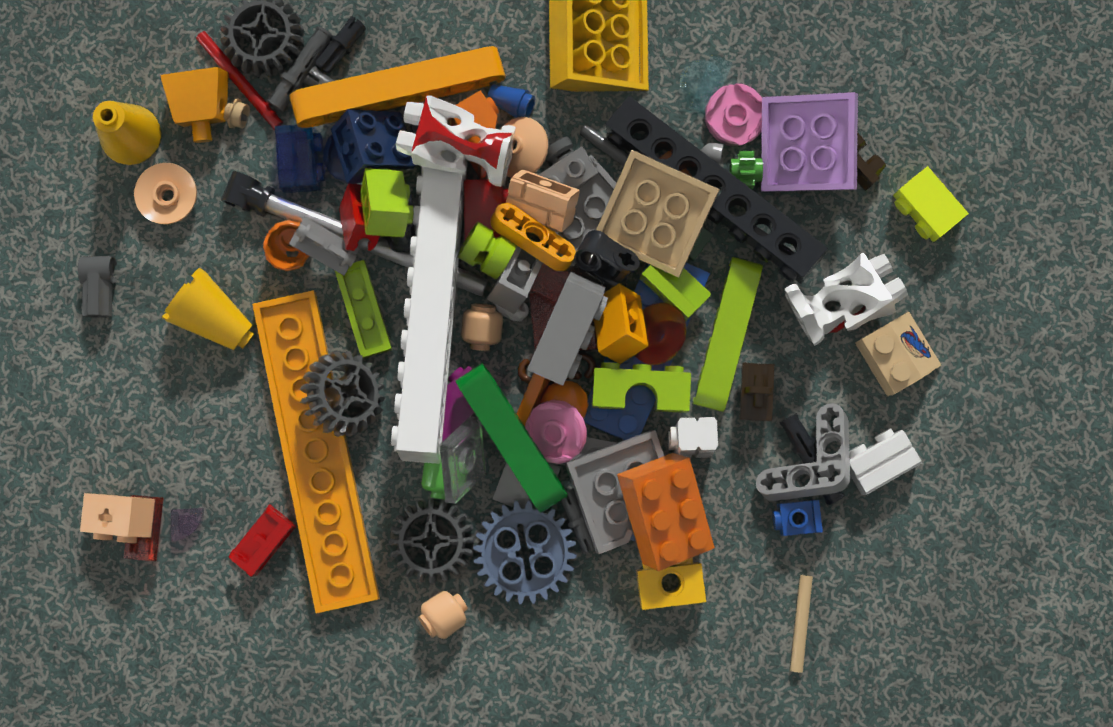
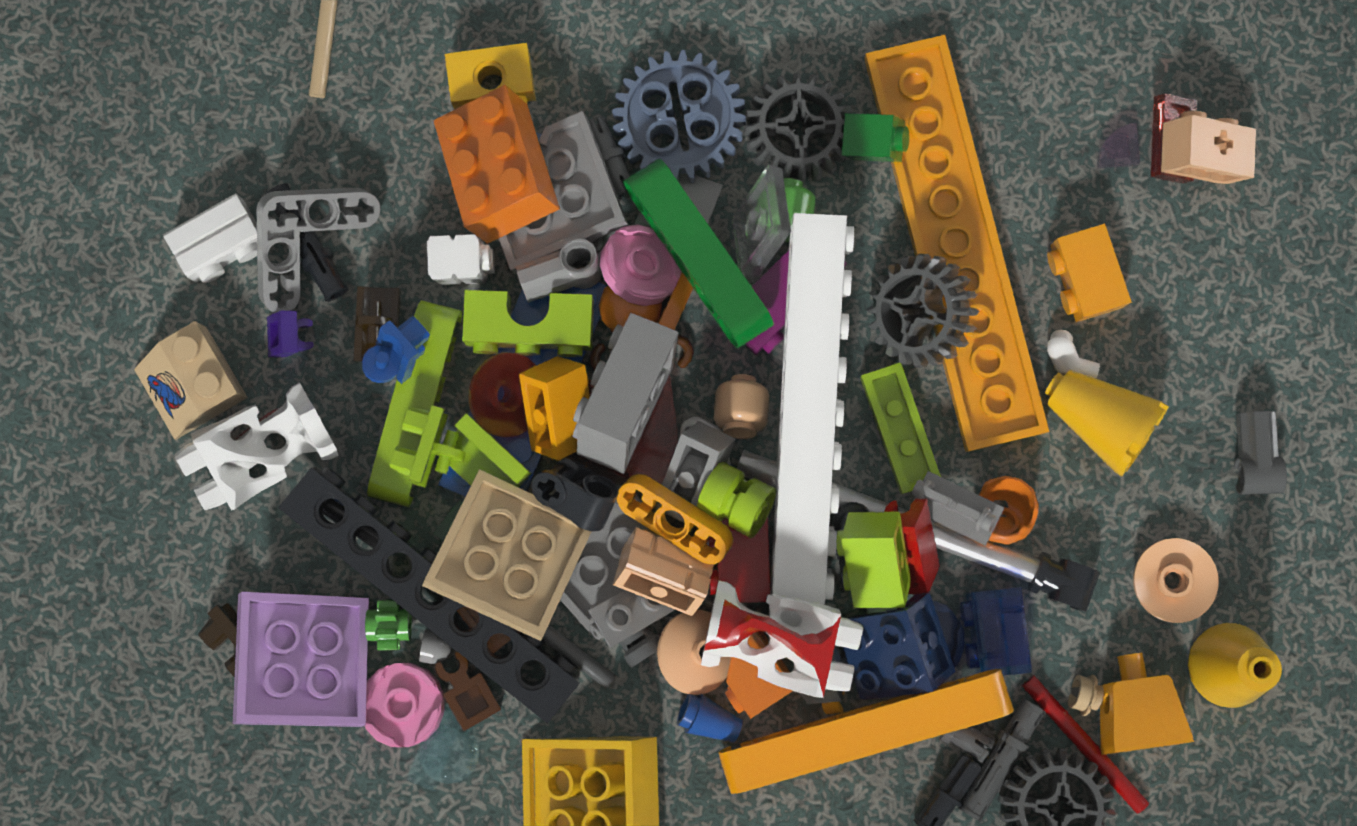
camera: 175 degrees right, 0 degrees up
(215, 422) = (1088, 273): none -> light orange brick
(236, 360) = (1065, 355): none -> white arm
(262, 541) = (1019, 125): red hinge -> none
(373, 528) = (874, 137): none -> green brick
(443, 614) = (781, 36): light nougat head -> none
(621, 427) = (555, 271): none -> light grey piece
(686, 118) = (470, 697): none -> reddish brown plate
(724, 282) = (419, 463): none -> lime hips
(742, 361) = (395, 351): none -> blue hips
(811, 518) = (338, 175): blue brick -> none
(827, 387) = (283, 336): none -> dark purple tile
(929, 205) = (141, 580): neon yellow brick -> none

